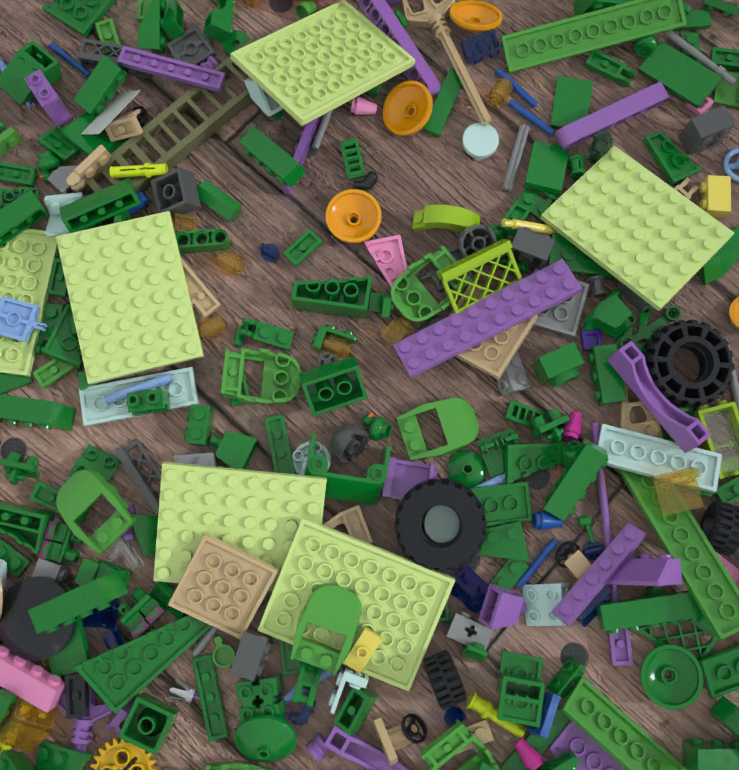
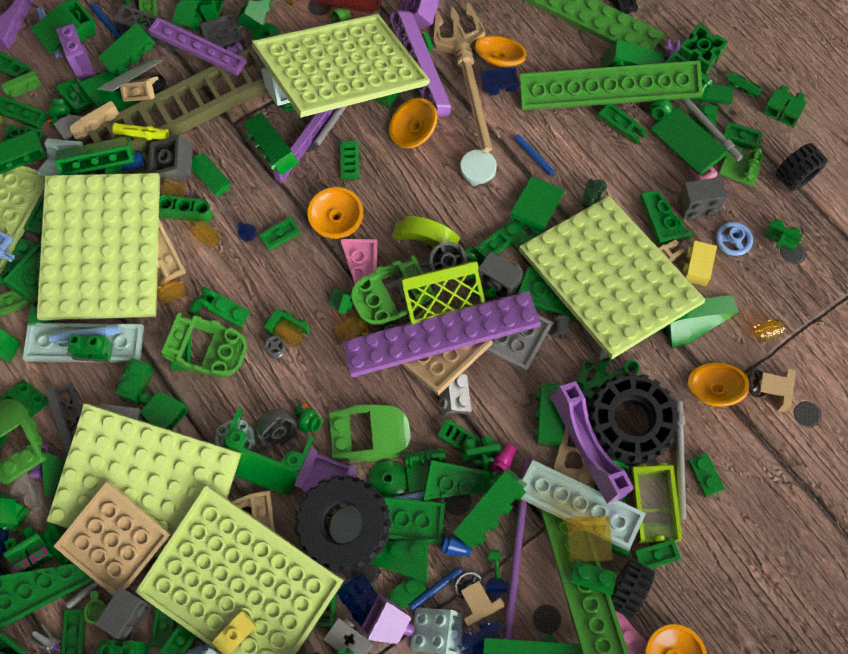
camera: 10 degrees right, 10 degrees down
(279, 444) = (207, 414): green plate -> none
(332, 609) = (215, 585): bright green slope -> none
(333, 385) = (273, 368): green brick -> none
(335, 296) = (297, 284): green wedge -> none
(362, 107) = (371, 114): bright pink cone -> none
(369, 181) = (359, 185): black arm -> none
(443, 104) = (450, 127): green tile -> none
(500, 92) = (508, 125): clear yellow brick -> none
(515, 158) = (509, 189): light grey axle -> none
(517, 88) = (529, 128): blue bar -> none
(536, 227) = (510, 257): light yellow piece -> none
(558, 366) = (501, 394): green piece -> none
(570, 101) = (576, 150): green tile -> none
(577, 166) = (568, 206): green bush -> none
(590, 339) = (543, 375): dark purple tile -> none
(598, 574) = (492, 608): medium lavender plate -> none
(610, 316) = (565, 357): green piece -> none
(612, 115) = (613, 167): medium lavender beam -> none
(648, 571) = (539, 614): medium lavender slope -> none
(689, 527) = (593, 578): none -> green plate

